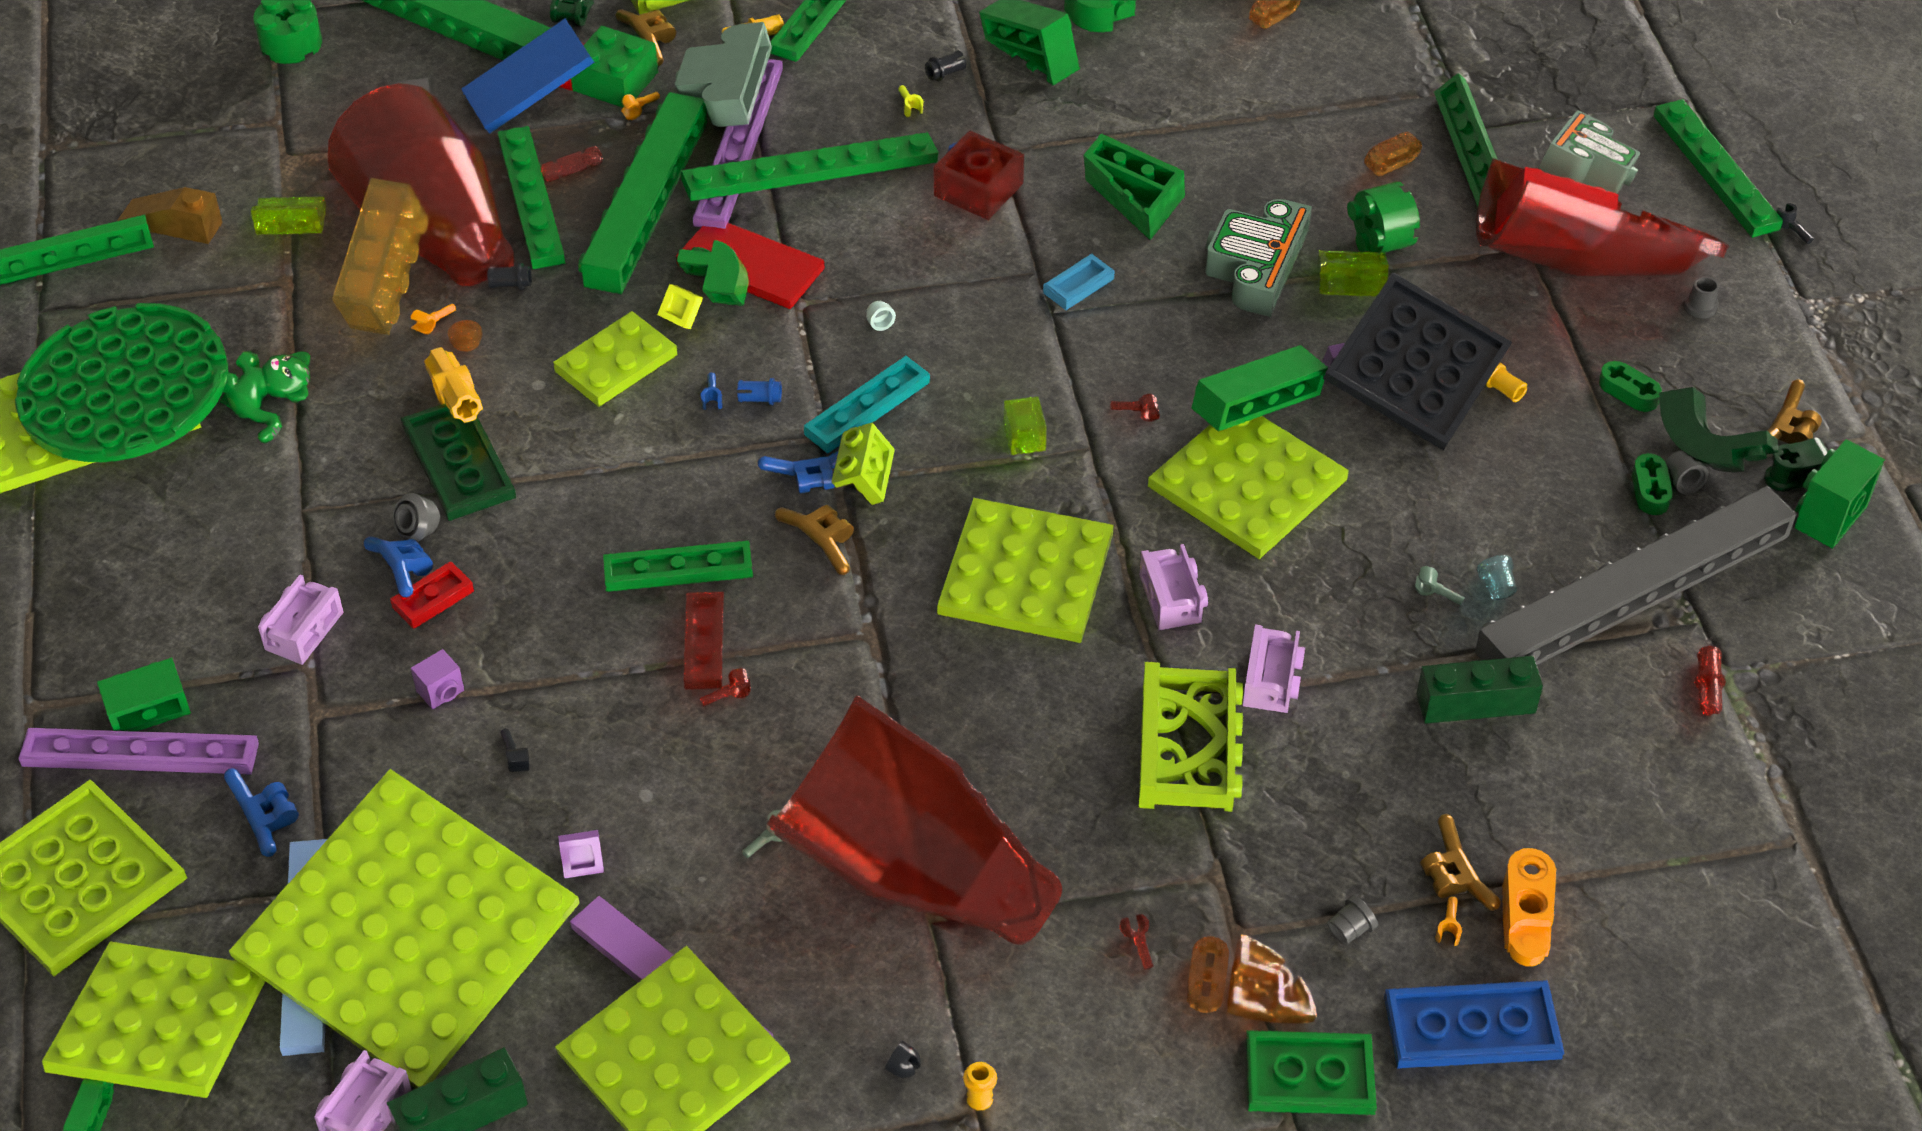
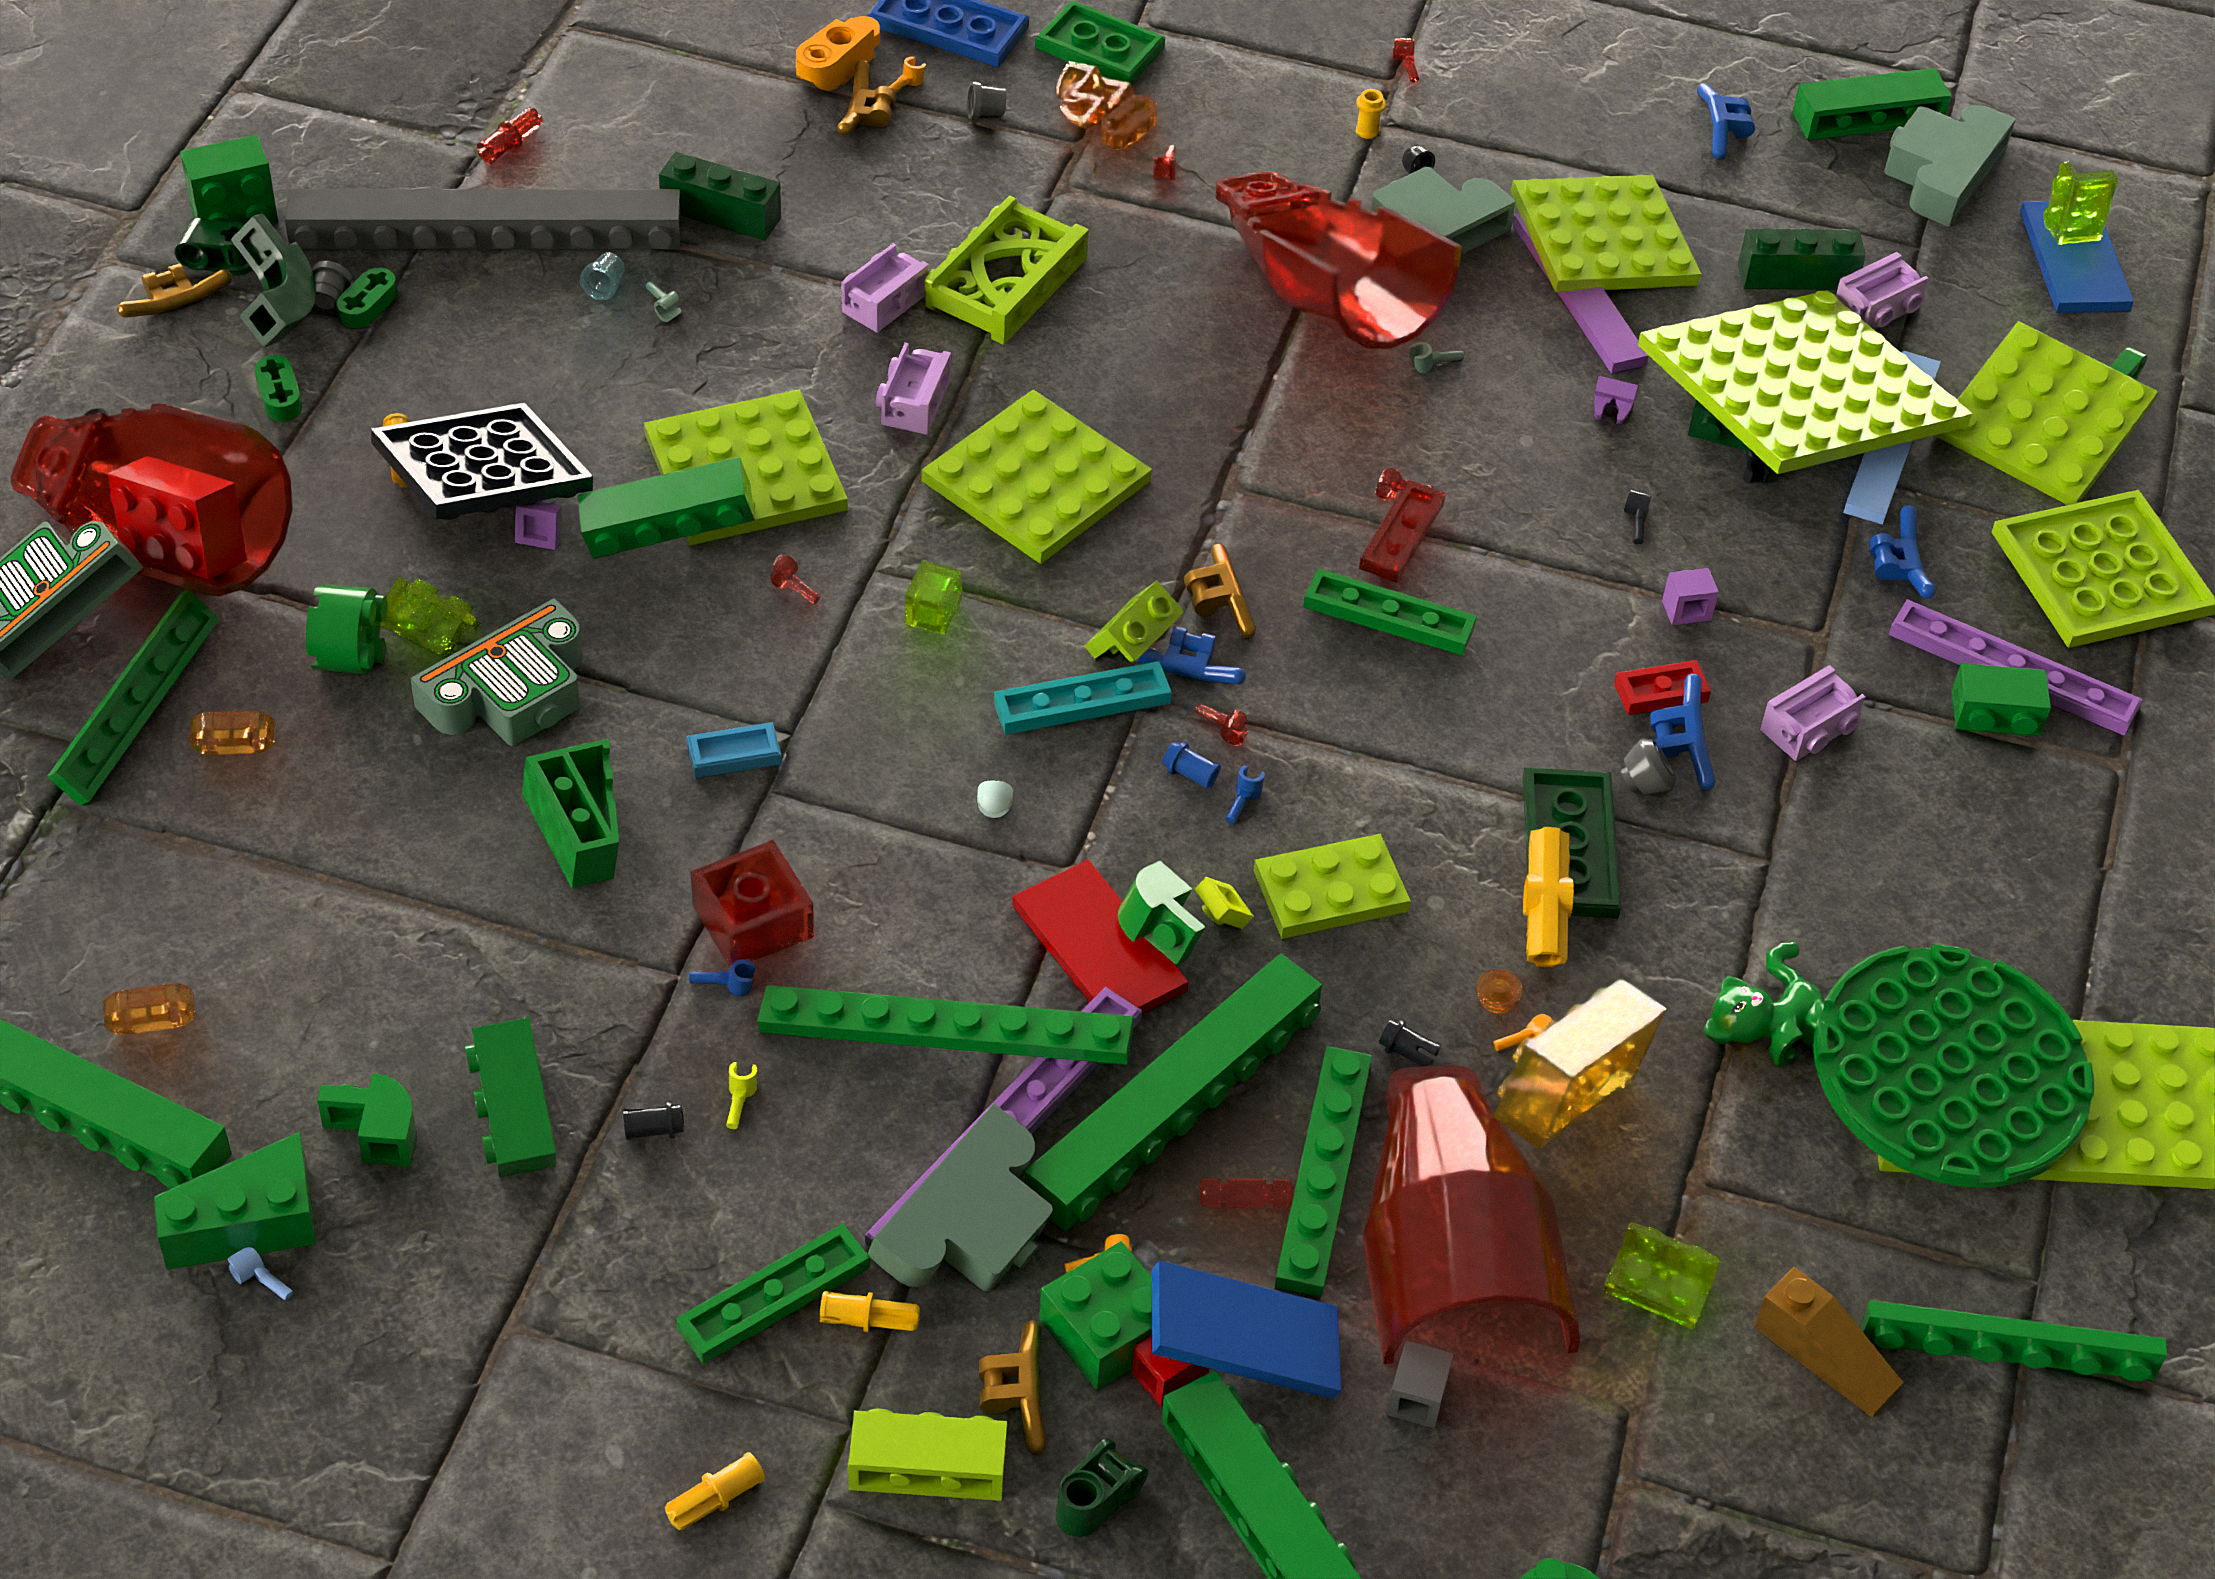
camera: 155 degrees left, 0 degrees up
(746, 435) = (1233, 725): none -> clear red hand
(845, 977) = (1464, 216): none -> sand green brick

